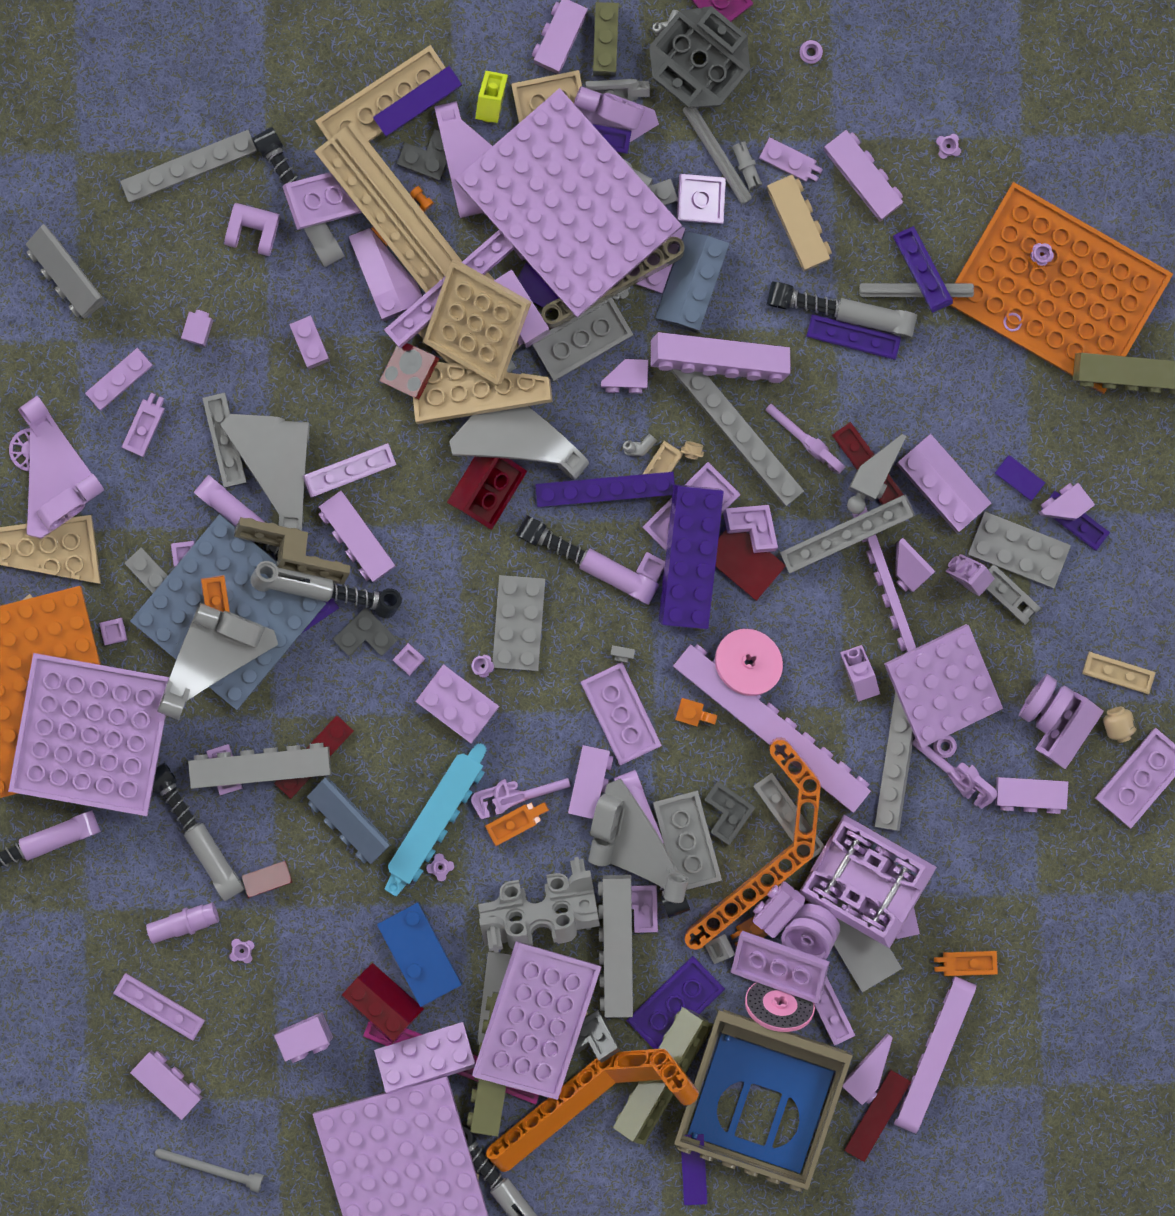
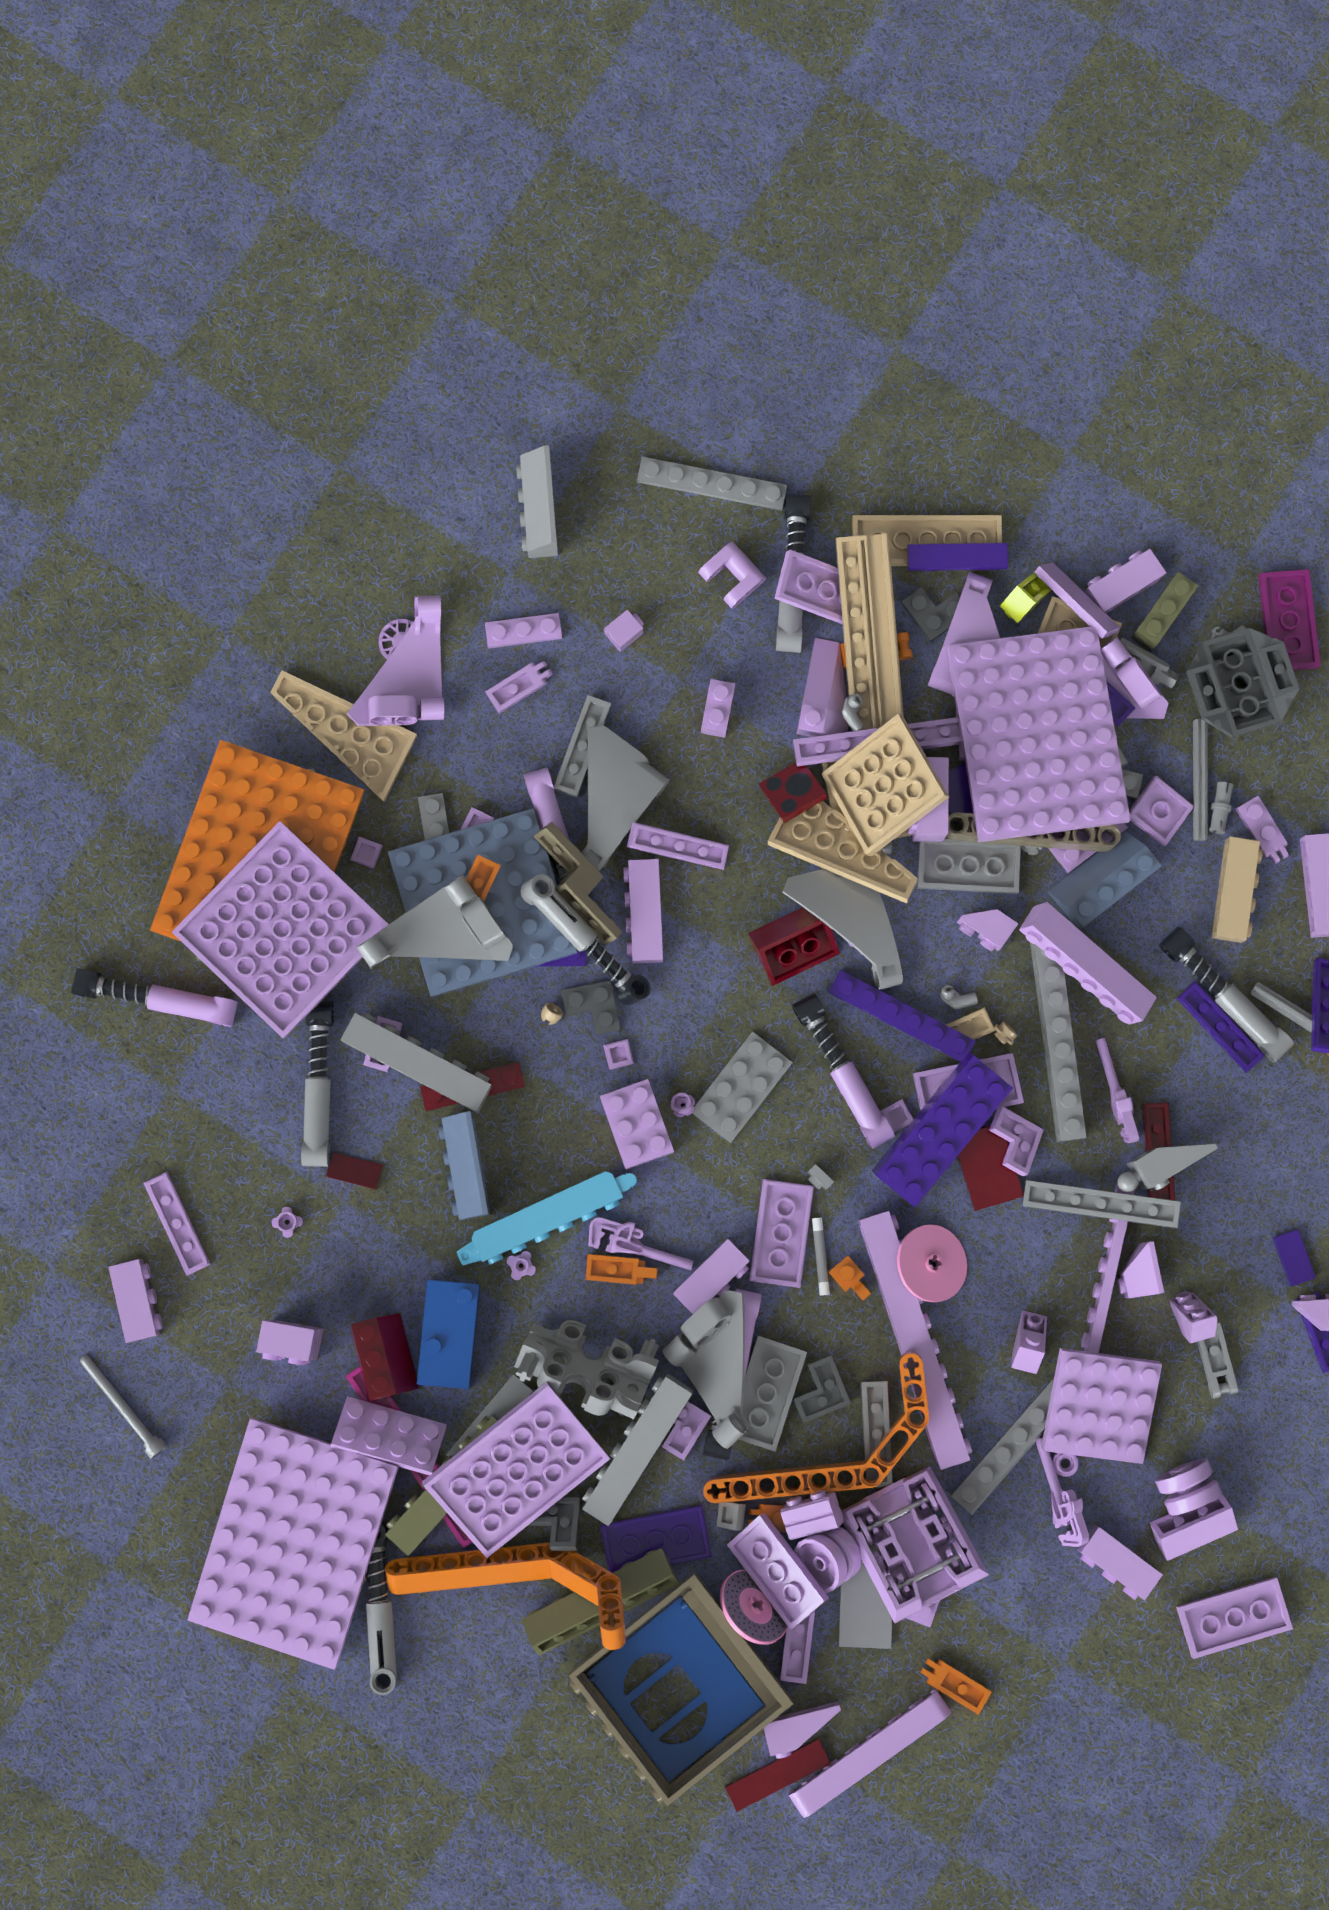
camera: 25 degrees right, 5 degrees down
(183, 922) = (250, 1160): lavender piece -> none
(337, 664) = (547, 1014): none -> tan hinge
(413, 277) = (850, 711): none -> light grey arm
(532, 75) = (1077, 600): none -> lavender tile
(661, 711) = (820, 1256): none -> light grey bar
(694, 1176) = (566, 1717): dark purple tile -> none
(943, 483) = (1218, 1216): lavender slope -> none
(1019, 550) = (1251, 1324): light grey plate -> none
(1118, 673) = (1273, 1502): tan tile -> none
(1119, 724) = (1244, 1552): tan head -> none

